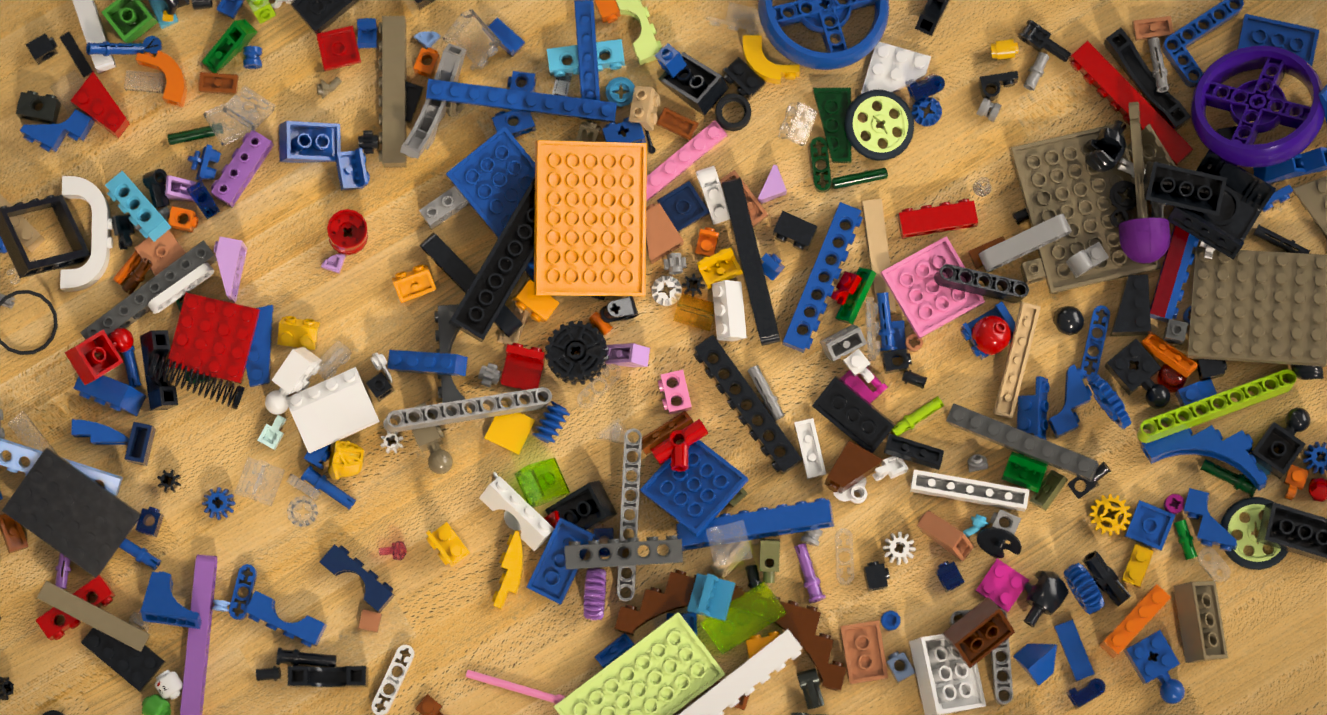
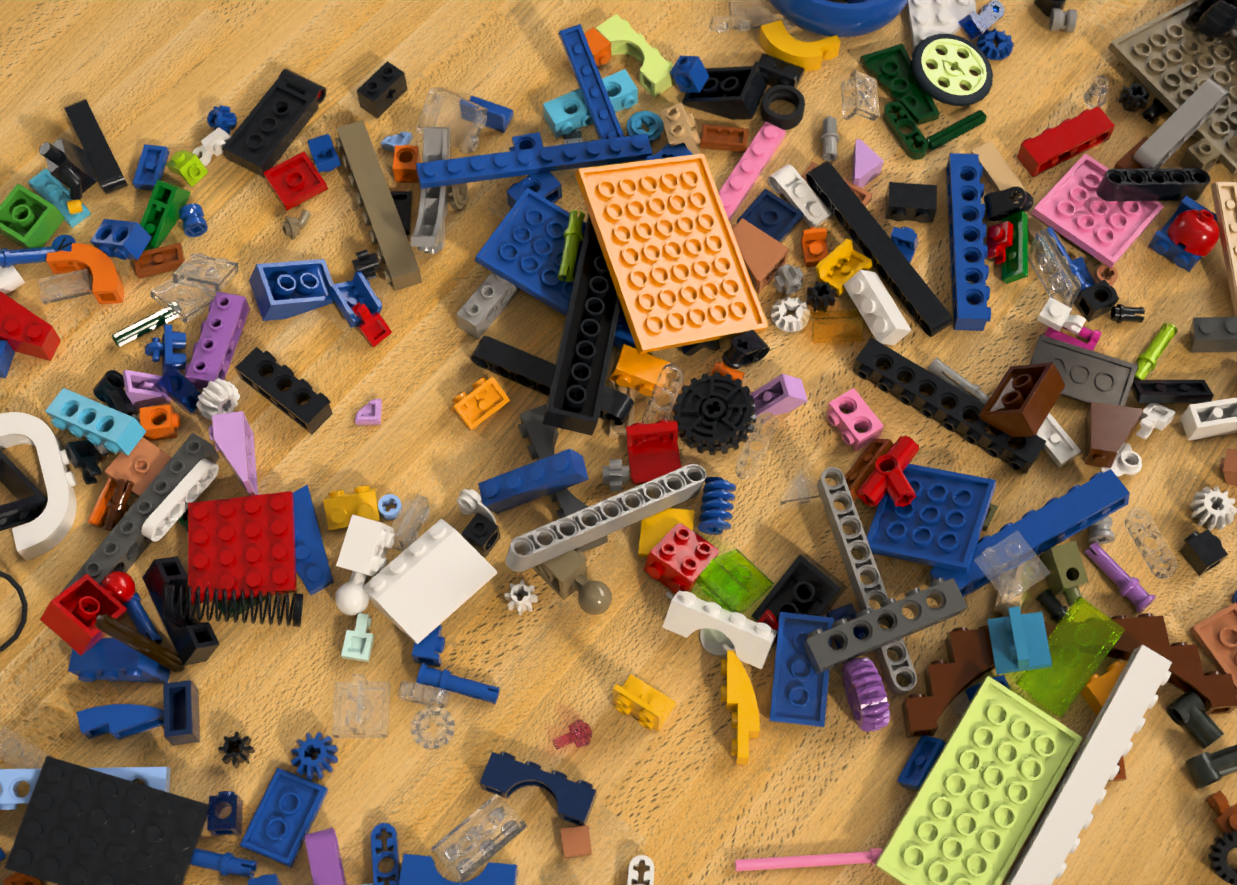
camera: 25 degrees left, 15 degrees down
(125, 392) = (138, 642): none -> dark brown axle
(187, 536) = (284, 817): none -> blue tile
(194, 59) = (121, 239): none -> blue brick
(228, 218) = (218, 398): none -> white gear
(260, 201) = (308, 416): none -> black brick
(307, 596) = (479, 837): none -> clear plate
(324, 335) = (386, 500): none -> light blue bush
(345, 459) = (468, 637): yellow piece -> none
(347, 221) = (375, 367): red wheel -> none
(357, 195) = (372, 326): none -> red plate
(511, 453) = (680, 559): none -> red bracket
(519, 187) = (572, 238): none -> lime pin
(544, 322) = (649, 414): none -> clear beam
(758, 152) = (829, 139): none -> light grey axle
(798, 423) = (1023, 399): none -> reddish brown slope
(843, 342) = (1027, 298): light grey brick -> none
(866, 259) = (1004, 204): none -> black piece
(1009, 205) = (1134, 97): none -> black gear

